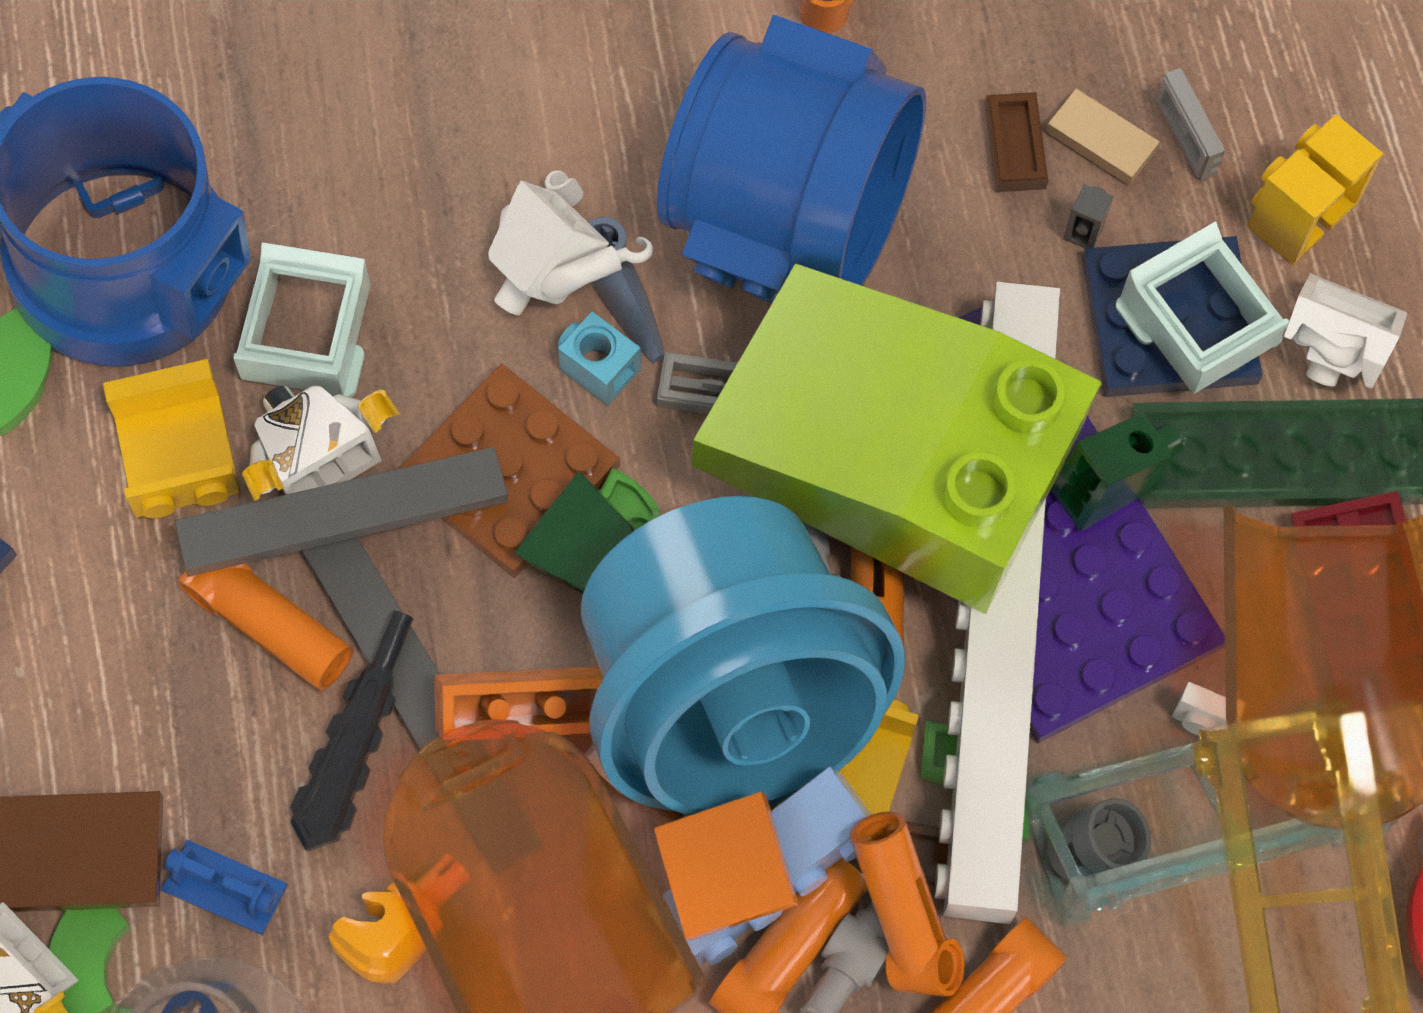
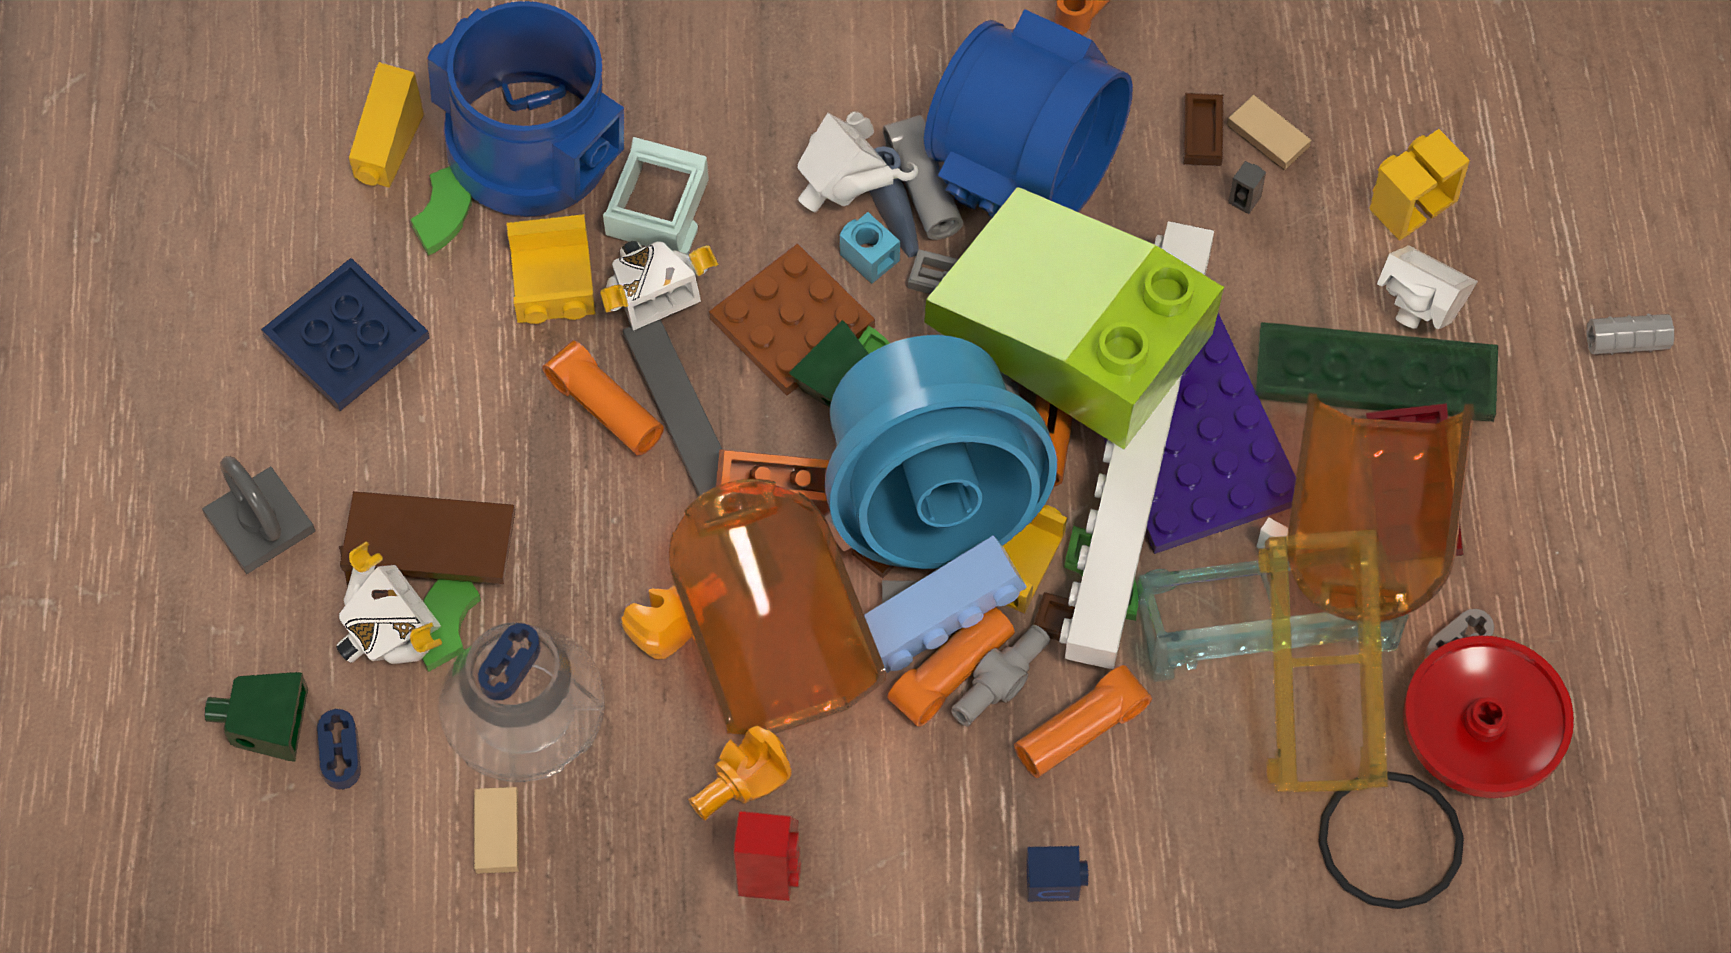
camera: 10 degrees right, 5 degrees down
(223, 886) = (549, 578): blue hinge -> none
(340, 511) = (667, 329): dark grey tile -> none
(340, 769) = (644, 509): black sword -> none
(669, 274) = (927, 190): none -> light grey piece
(725, 866) = (910, 595): orange tile -> none
(918, 952) = (1042, 676): orange piece -> none
(1103, 837) = (1188, 610): dark grey wheel -> none
(1114, 468) = (1235, 362): dark green torso -> none
(1155, 322) = (1284, 266): light aqua piece -> none
(1190, 124) = (1335, 129): light grey tile -> none
(1194, 298) = (1300, 266): dark blue plate -> none

